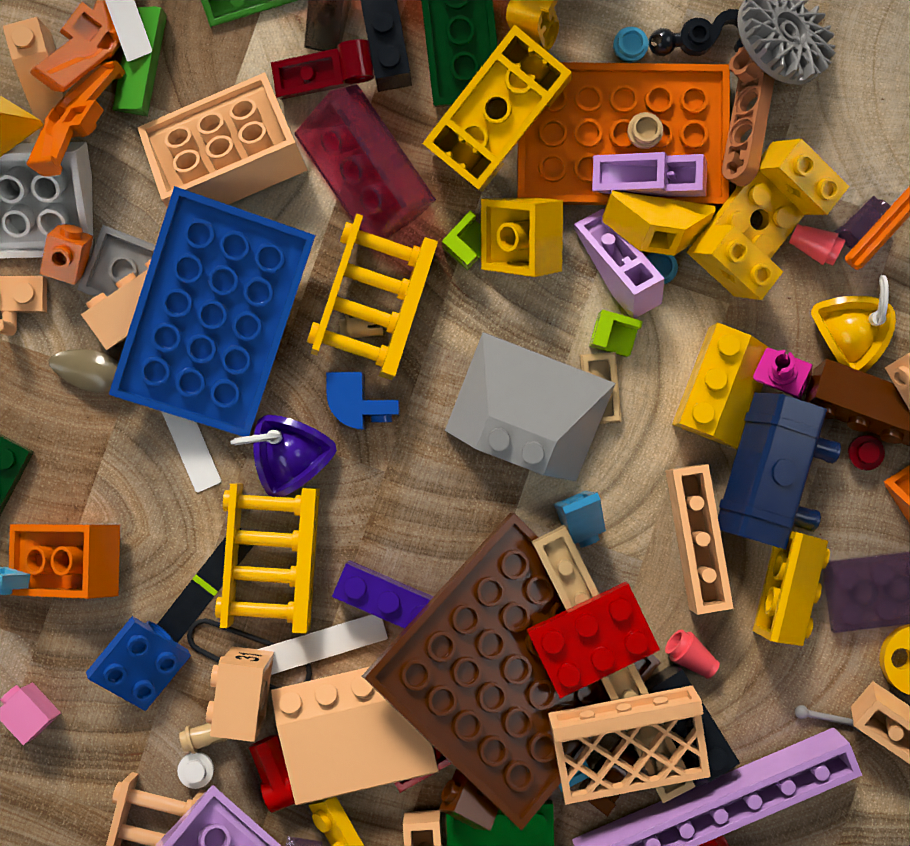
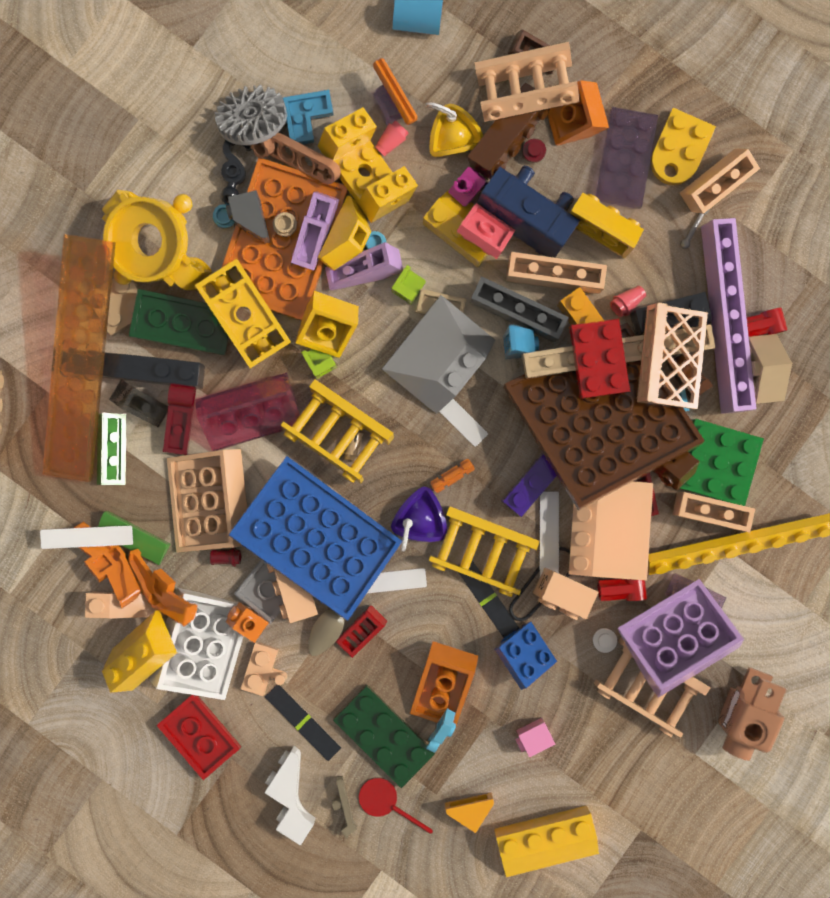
camera: 75 degrees left, 0 degrees up
(125, 430) = (375, 617): none -> red slope
(150, 198) = (226, 557): none -> dark red pin
(197, 738) = (584, 630): tan pin -> none
(348, 402) = (399, 469): blue brick -> none
(363, 480) = (452, 475): none -> orange axle
(444, 473) = (463, 422): none -> white sticker
(629, 501) = (518, 309): none -> dark grey brick
(643, 74) = (248, 214): none -> dark grey slope
(657, 588) = (579, 308): none -> light orange brick
(726, 417) = (486, 231): none -> coral plate
(819, 106) = (304, 108): none -> dark azure plate

